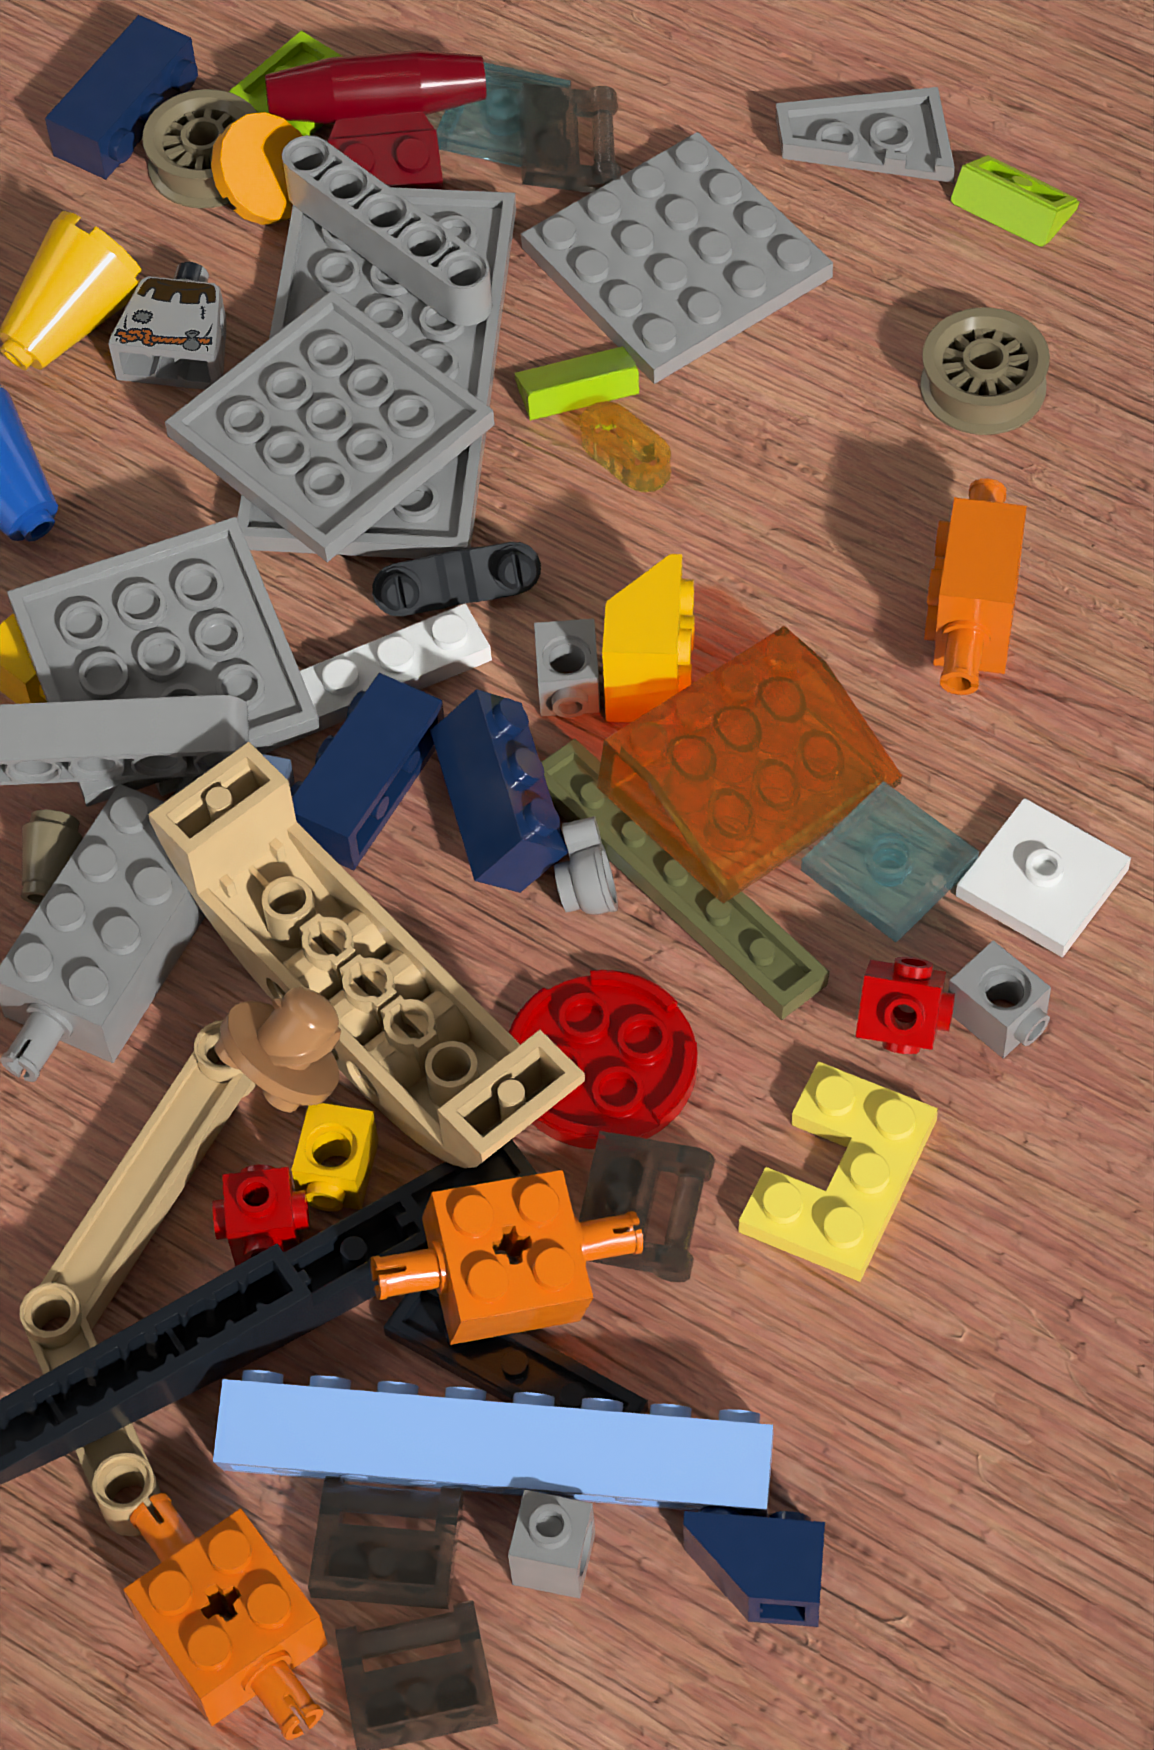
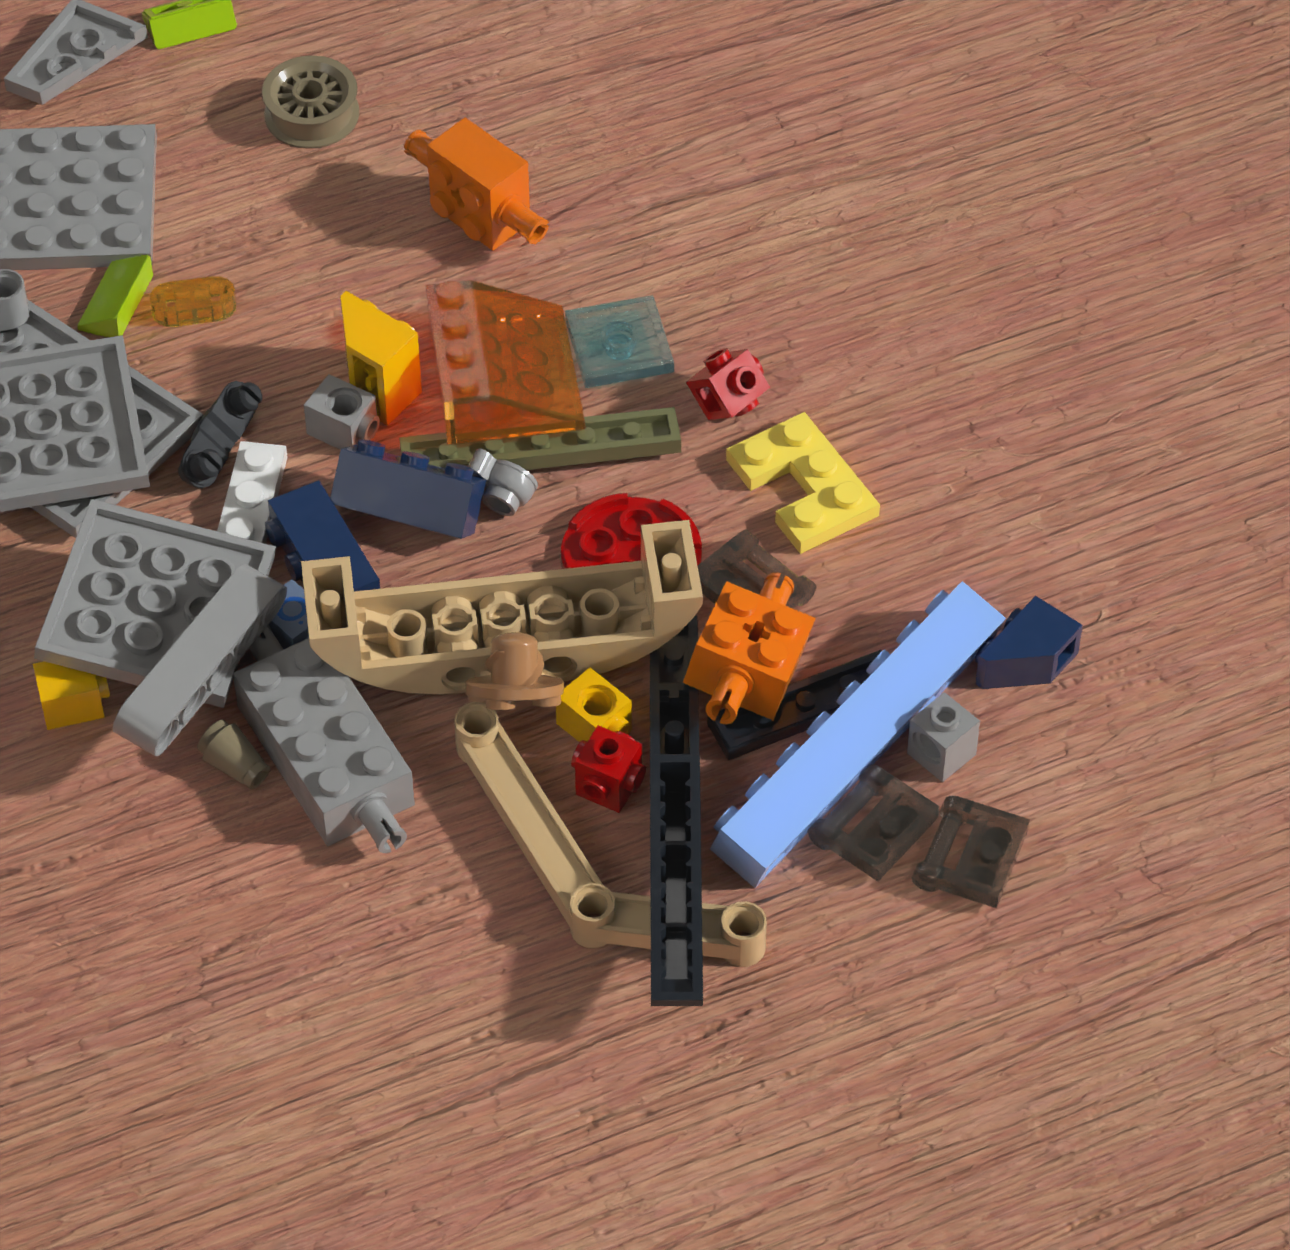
camera: 60 degrees left, 5 degrees down
(219, 1659) = (867, 920): orange brick -> none
(996, 976) = (764, 336): light grey brick -> none
(1043, 877) = (690, 281): white plate -> none

